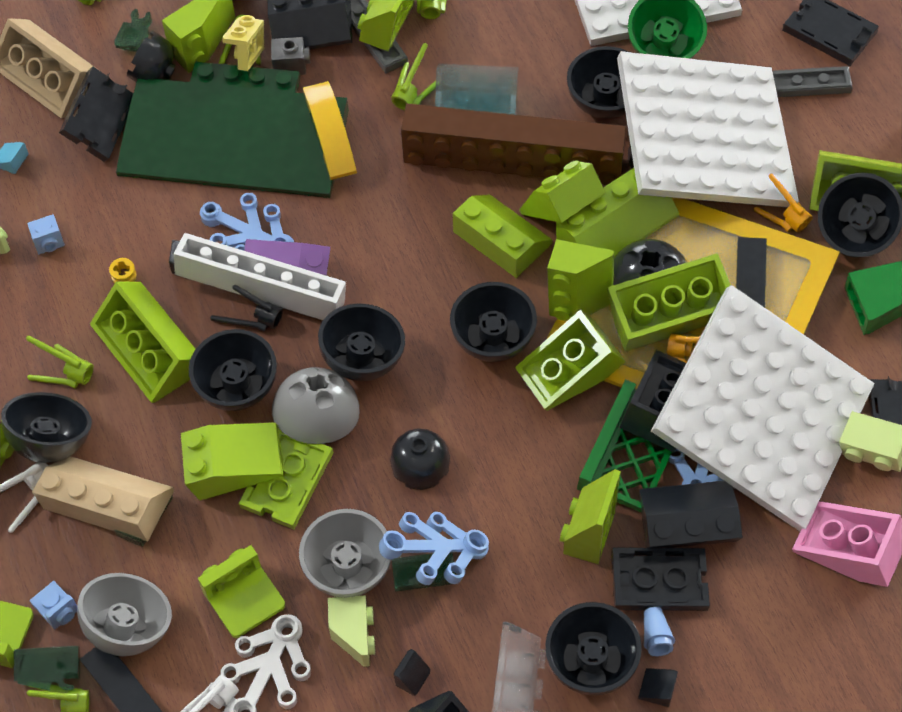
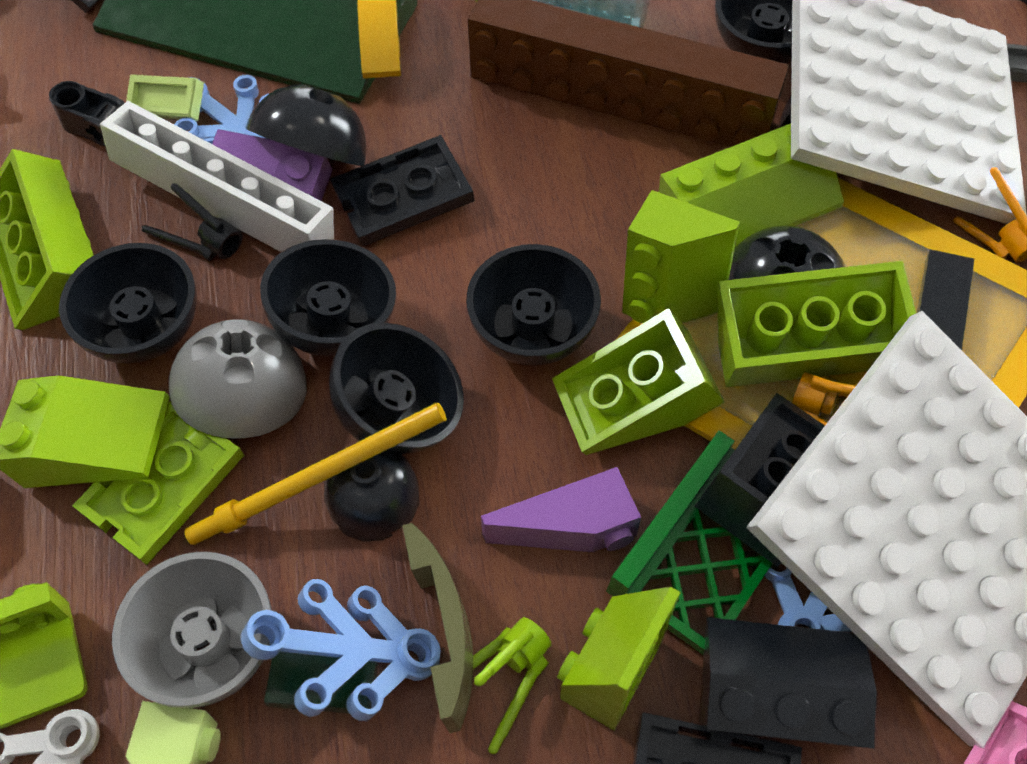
camera: 10 degrees right, 0 degrees up
(122, 263) = (46, 138): yellow bush -> none
(146, 243) = (82, 109): none -> black piece
(194, 220) = (167, 95): none -> yellowish green tile
(313, 225) = (311, 122): none -> black piece
(340, 489) = (235, 513): none -> yellow bar
(382, 258) = (402, 190): none -> black piece
(421, 392) = (389, 375): none -> black piece
(472, 495) = (453, 678): none -> olive slope
(499, 233) = (575, 186): lime slope -> none
(532, 530) = (519, 649): none -> lime plant
(548, 449) = (574, 517): none -> medium lavender slope
(565, 193) = (680, 137): lime slope -> none

